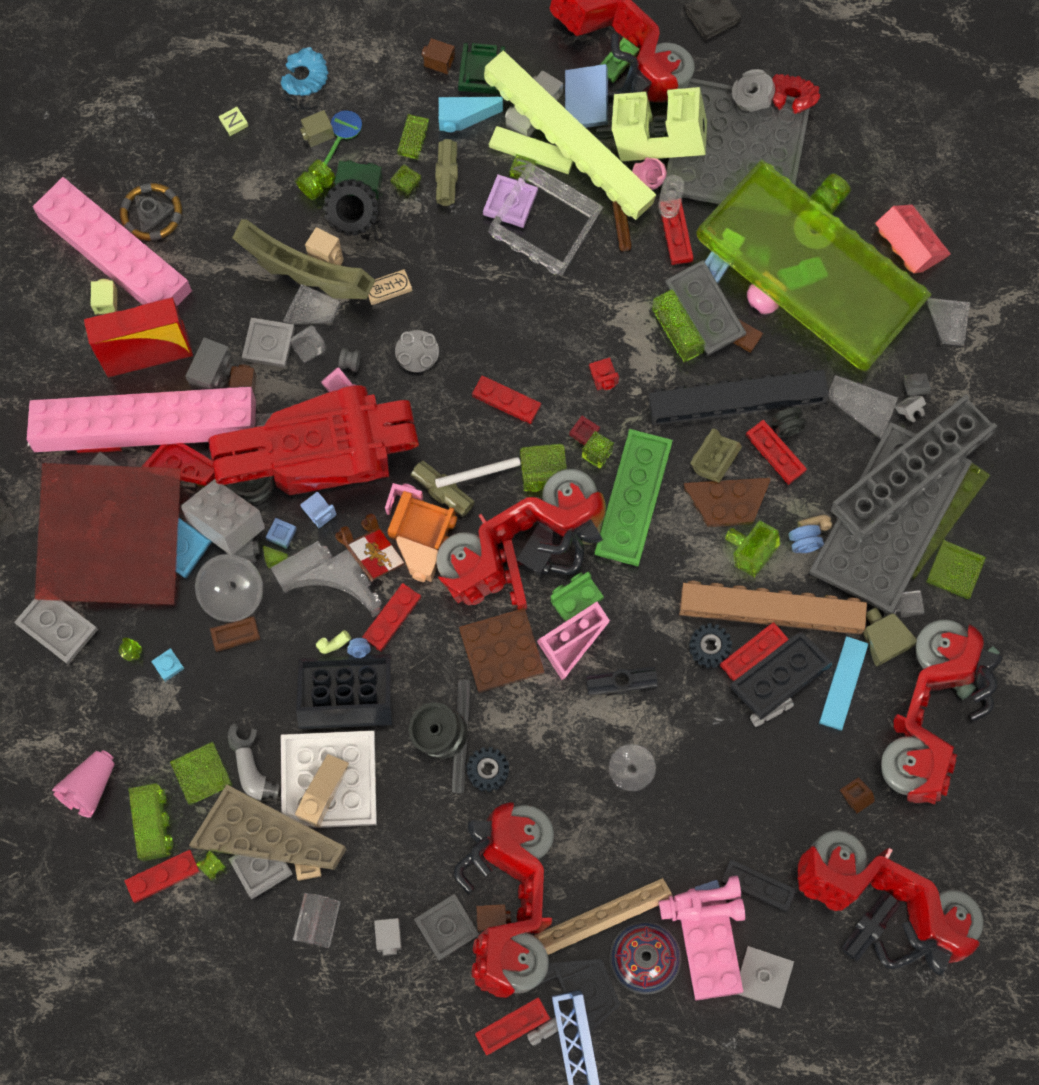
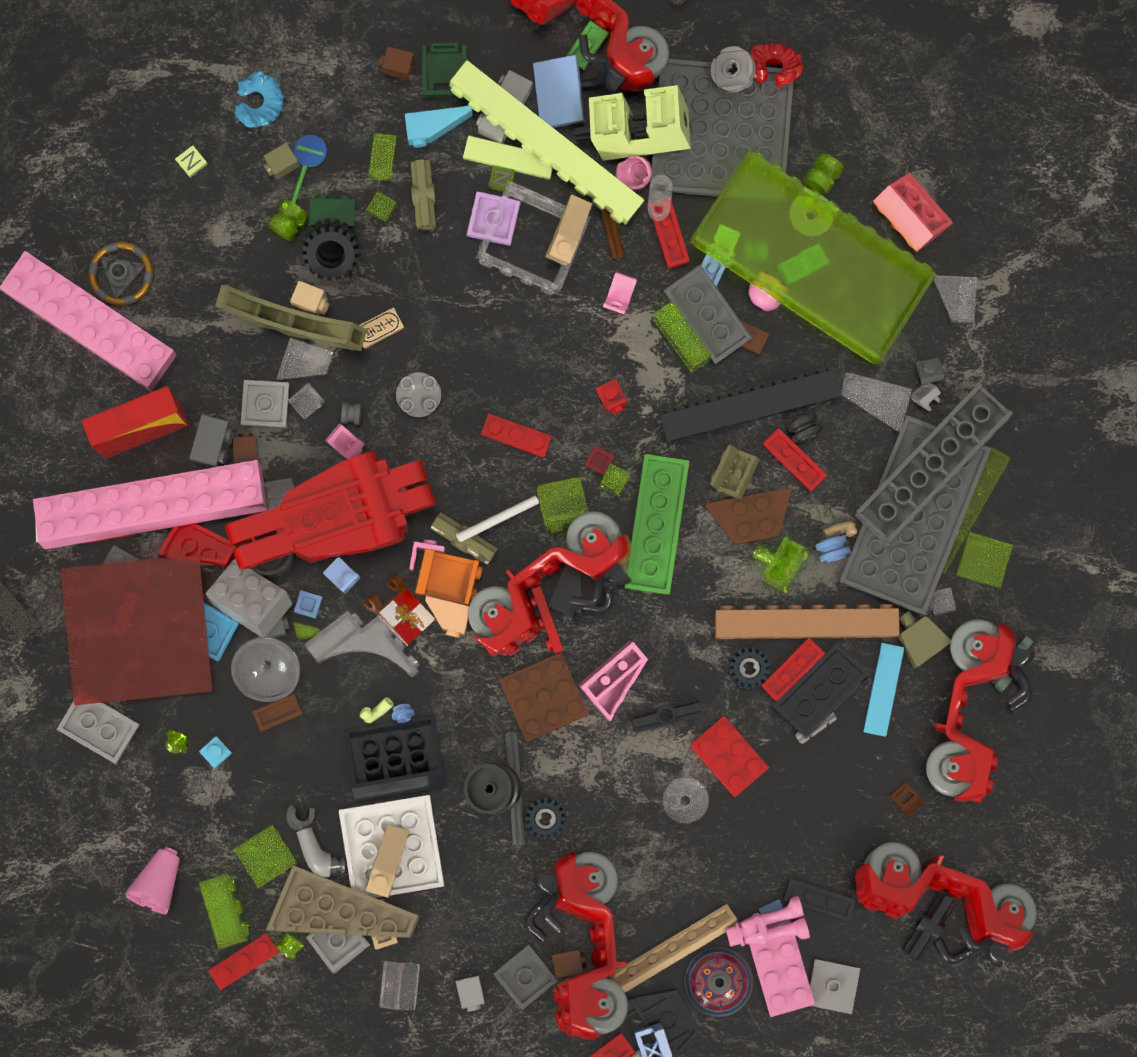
camera: 10 degrees left, 10 degrees up
(103, 296) = (88, 374): yellowish green brick -> none
(391, 617) = (430, 677): red plate -> none
(575, 596) = (611, 635): bright green bracket -> none
(580, 214) = (569, 231): none -> tan slope
(624, 278) = (620, 292): none -> bright pink bracket
(681, 730) = (729, 756): none -> red plate

